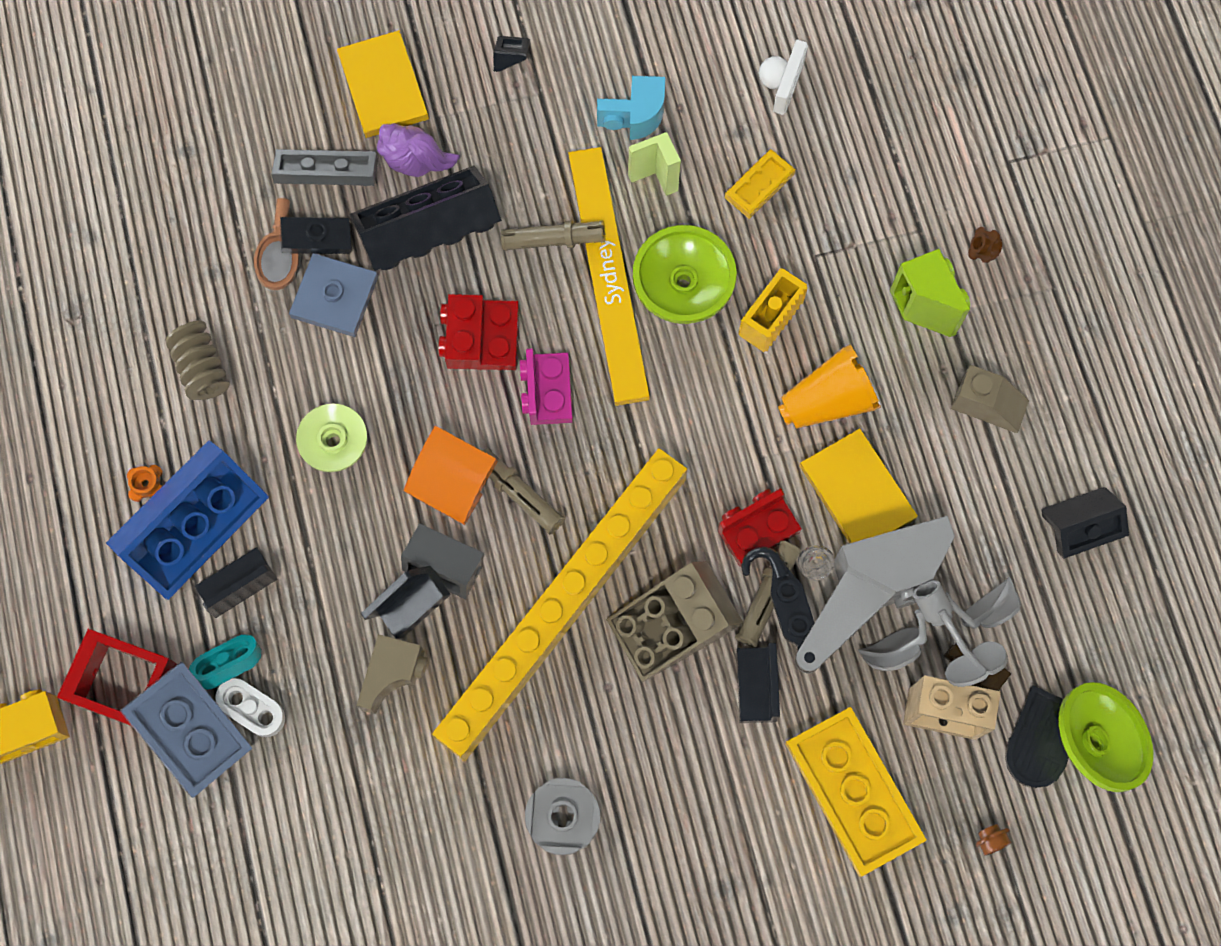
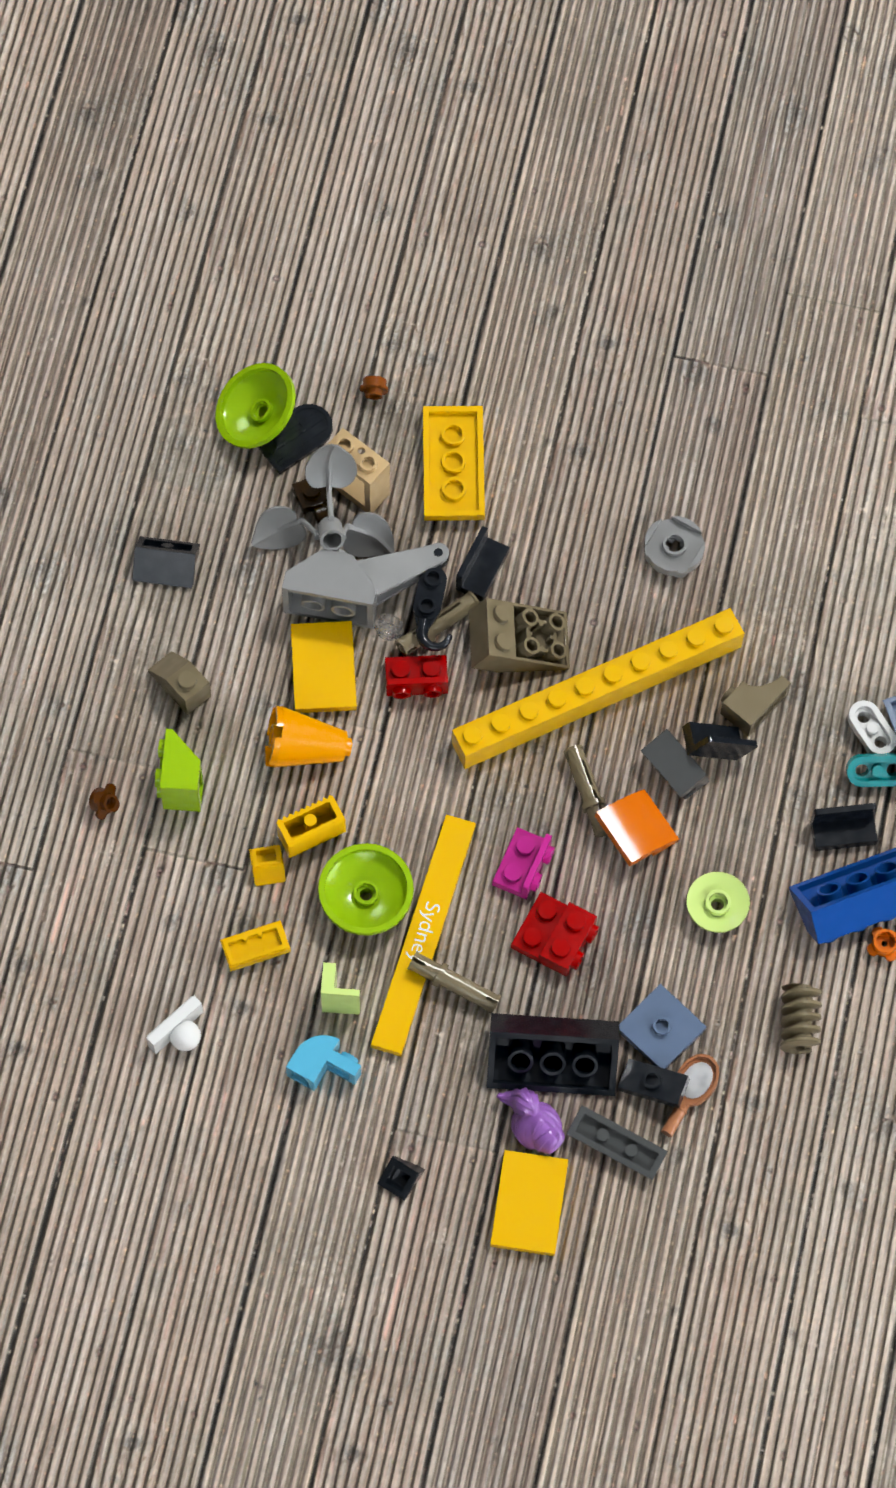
camera: 155 degrees left, 5 degrees down
(798, 263) = (267, 865): none -> yellow slope

